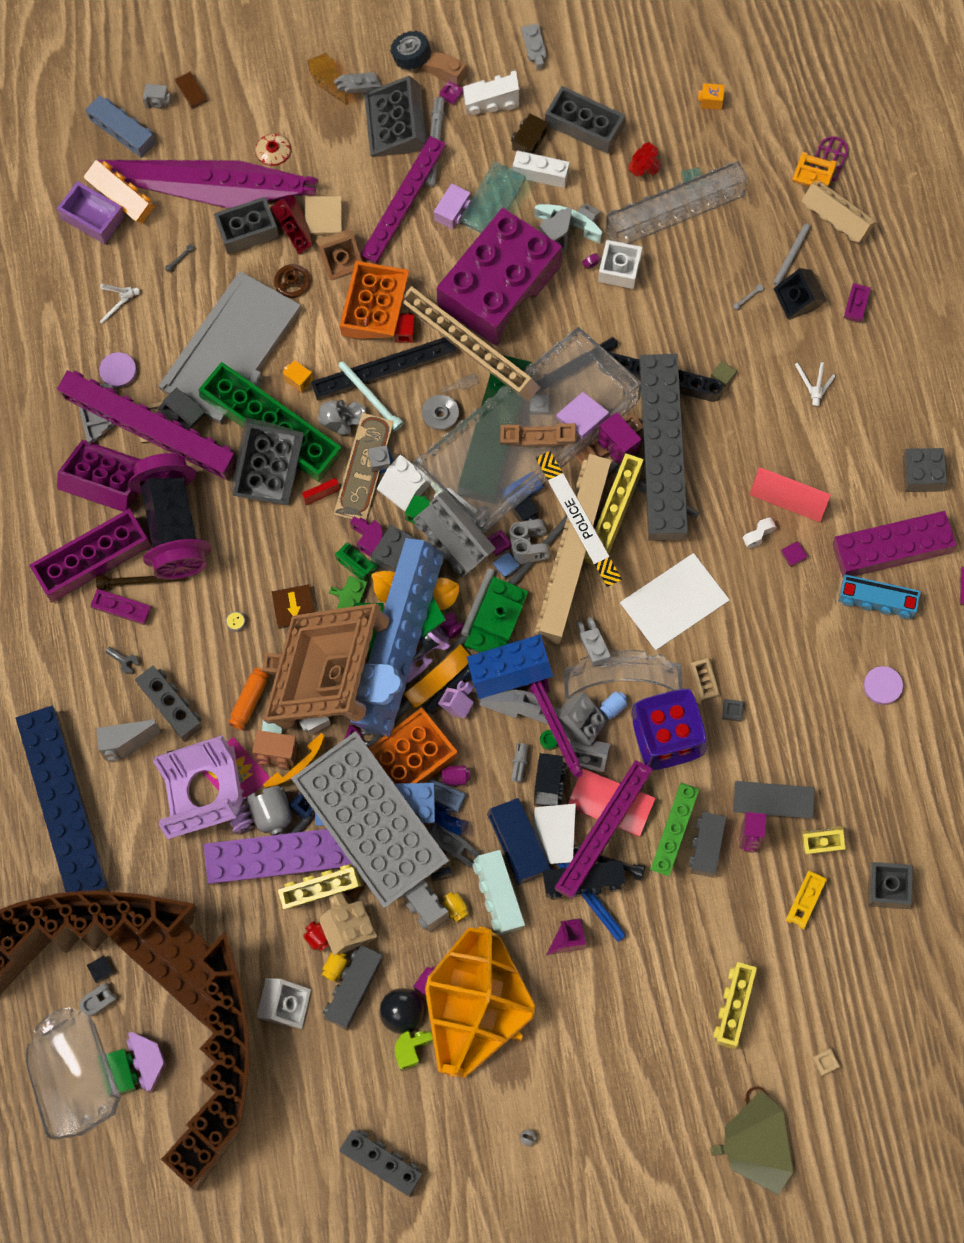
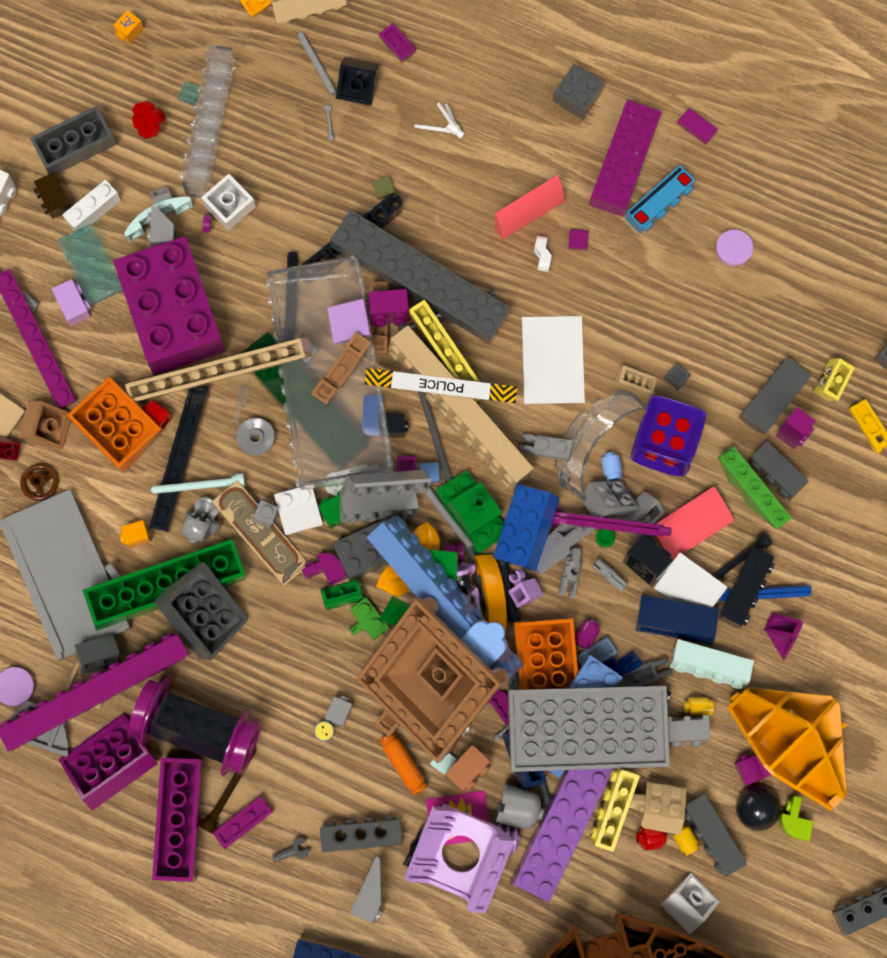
camera: 60 degrees left, 5 degrees up
(258, 621) = (339, 711): none -> light grey brick
(290, 603) = (342, 673): reddish brown tile -> none
(315, 749) = (486, 736): light orange slope -> none
(320, 491) = (256, 583): red tile -> none
(508, 728) = (571, 573): none -> light grey hinge
(532, 552) = (437, 443): light grey piece -> none
(603, 829) = (719, 544): magenta plate -> none

